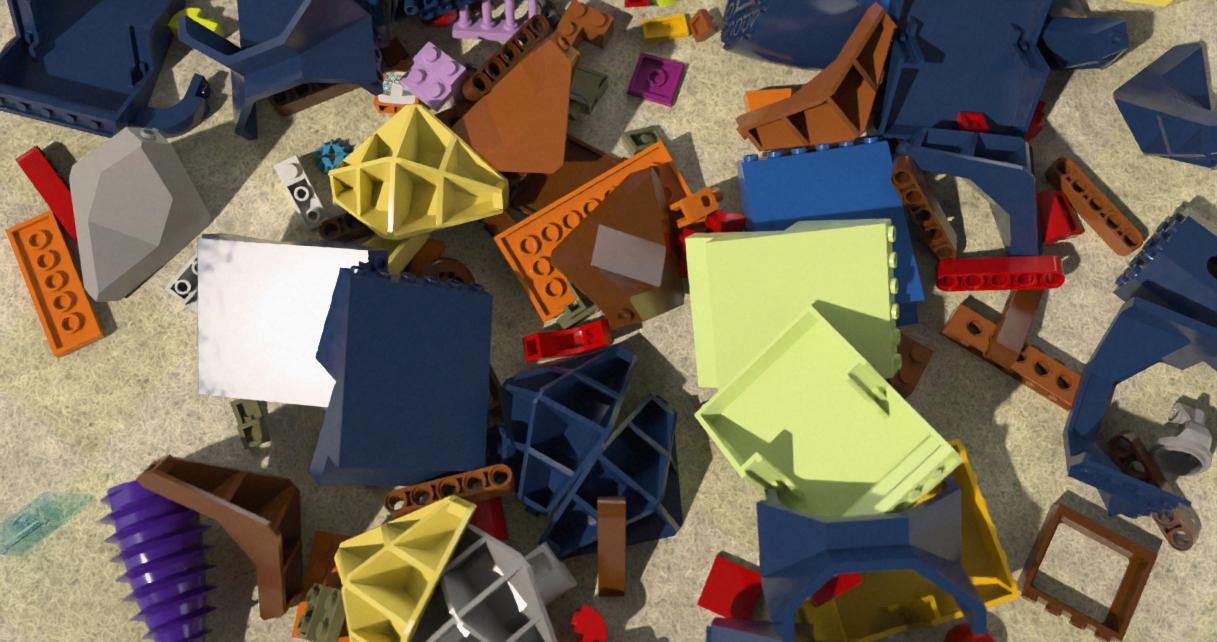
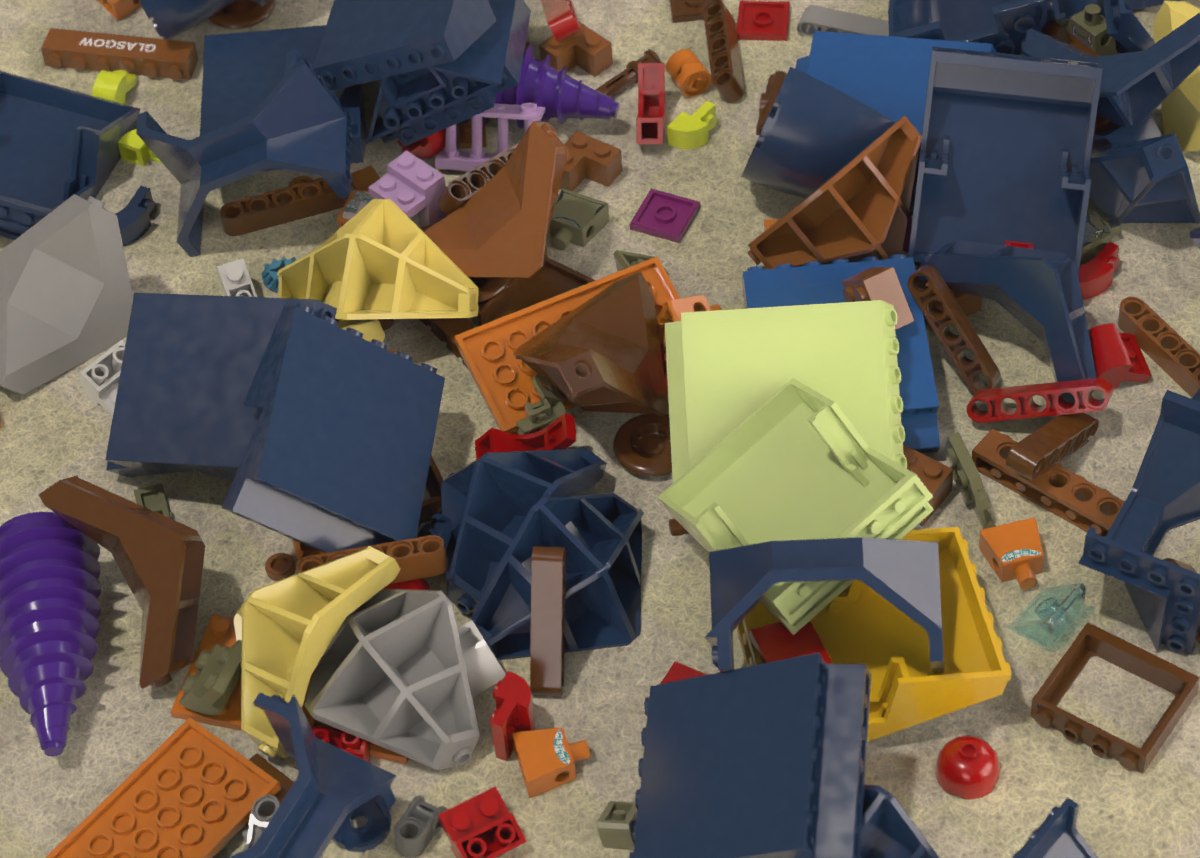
camera: 10 degrees right, 25 degrees down
(664, 28) = (681, 169): yellow tile -> none
(673, 330) = (652, 451): none -> reddish brown wheel
(702, 25) = (725, 165): dark orange tile -> none
(867, 192) = (878, 284): none -> brick
(949, 361) = (969, 478): none -> olive wing
(989, 426) = (1014, 551): none -> orange torso
(1023, 488) = (1050, 614): none -> clear light blue slope

